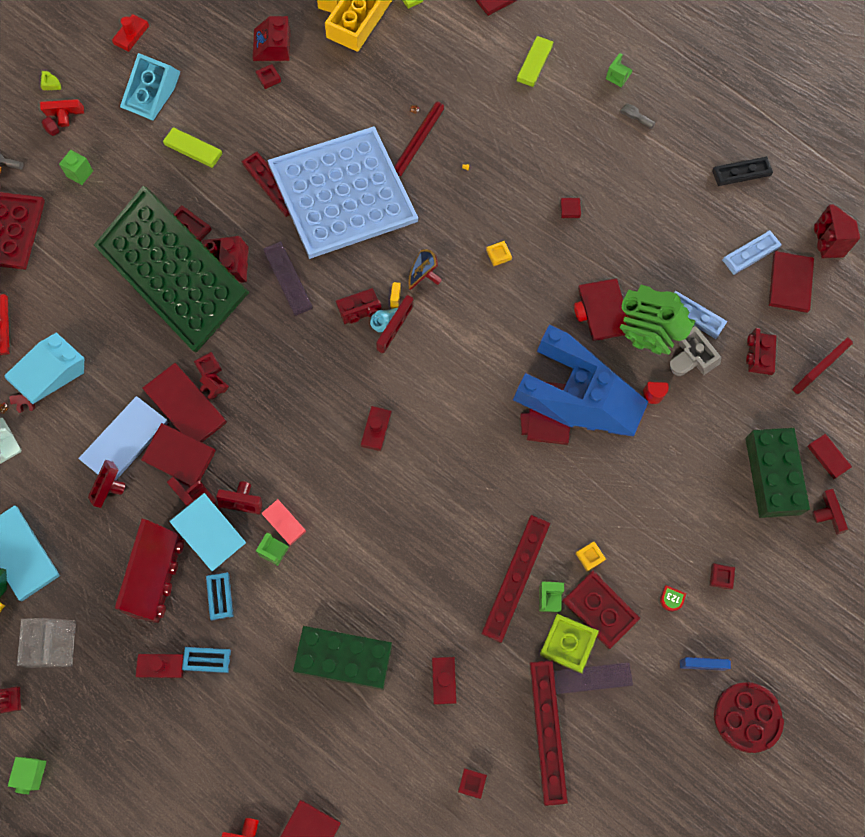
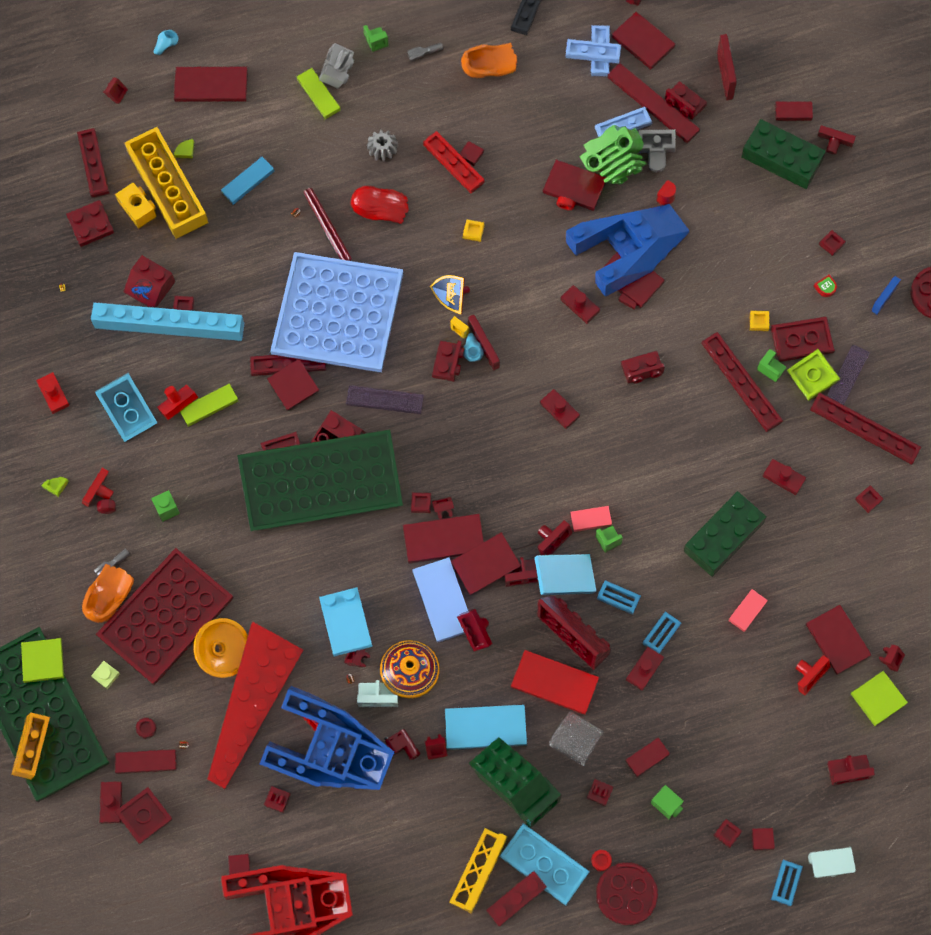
camera: 50 degrees left, 0 degrees up
(45, 462) = (409, 681): none -> dish
(68, 724) = (647, 757): none -> dark red tile
(97, 589) = (554, 682): none -> red tile
(177, 120) = (176, 401): none -> red tile
(246, 73) = (167, 321): none -> medium azure brick
(251, 197) = (293, 384): none -> dark red tile
(279, 731) = (748, 610): none -> coral tile
(416, 57) = (247, 180): none -> dark azure tile
(467, 164) = (379, 204): none -> red hair
(467, 477) = (642, 367): none -> dark red bracket
(491, 384) = (580, 304): none -> dark red tile
(523, 134) = (389, 142): none -> light grey gear
(550, 198) = (453, 162): none -> red plate
(568, 56) = (336, 66): none -> light grey brick
(667, 167) = (489, 60): none -> orange hair
(737, 328) = (653, 103): none -> dark red tile
(745, 245) = (593, 51): none -> light blue tile

